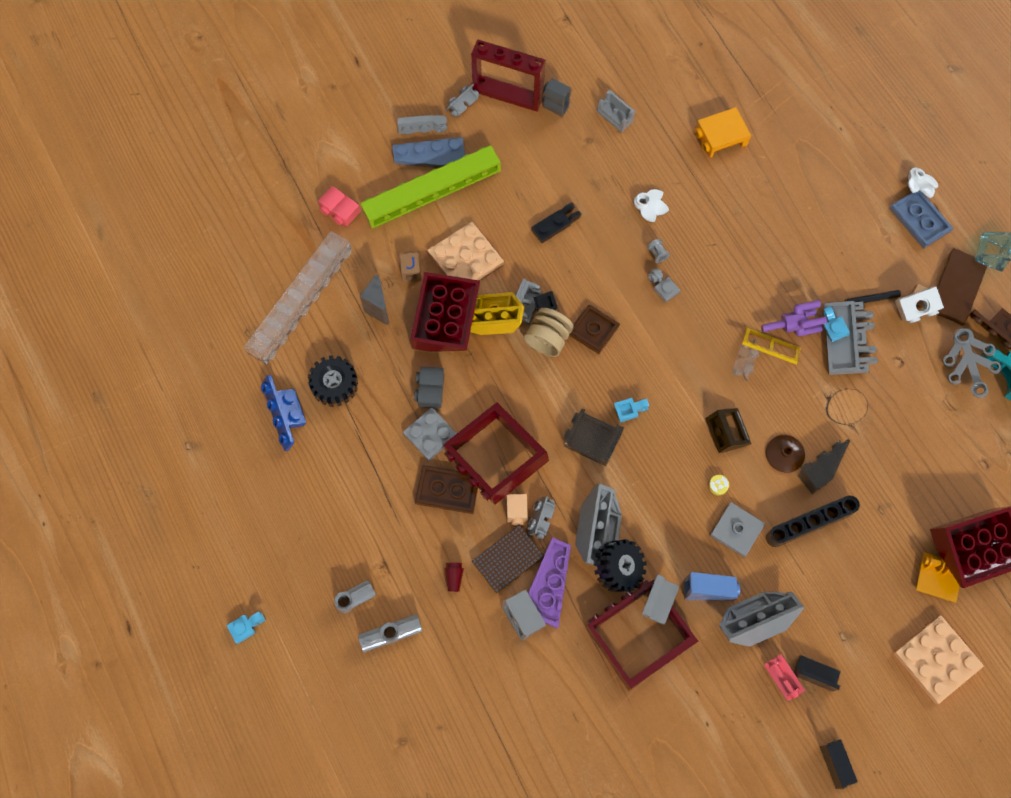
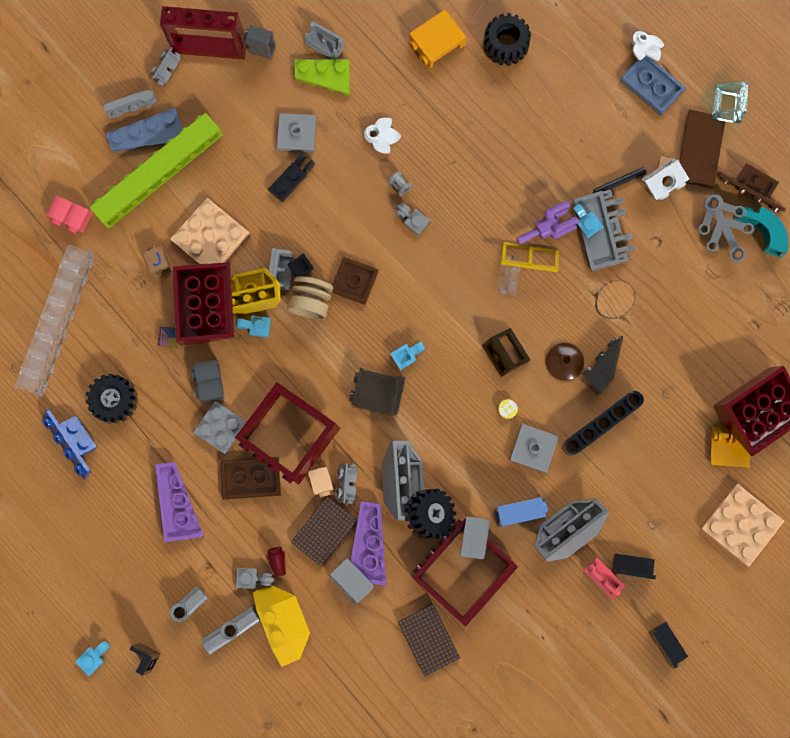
camera: 10 degrees left, 10 degrees up
(299, 641) = (149, 658): none -> black panel
(367, 505) = (176, 509): none -> medium lavender wing
(373, 301) = (130, 306): flat silver slope -> none
(401, 338) = (167, 337): none -> clear smoke tile
(420, 586) = (248, 578): none -> light grey plate
(444, 640) = (282, 623): none -> yellow wedge
(490, 349) = (258, 326): none -> medium azure plate
(570, 184) = (296, 132): none -> light grey plate
(589, 695) = (429, 640): none -> reddish brown tile
(612, 140) = (327, 73): none -> lime wing
(792, 135) = (511, 26): none -> black tyre

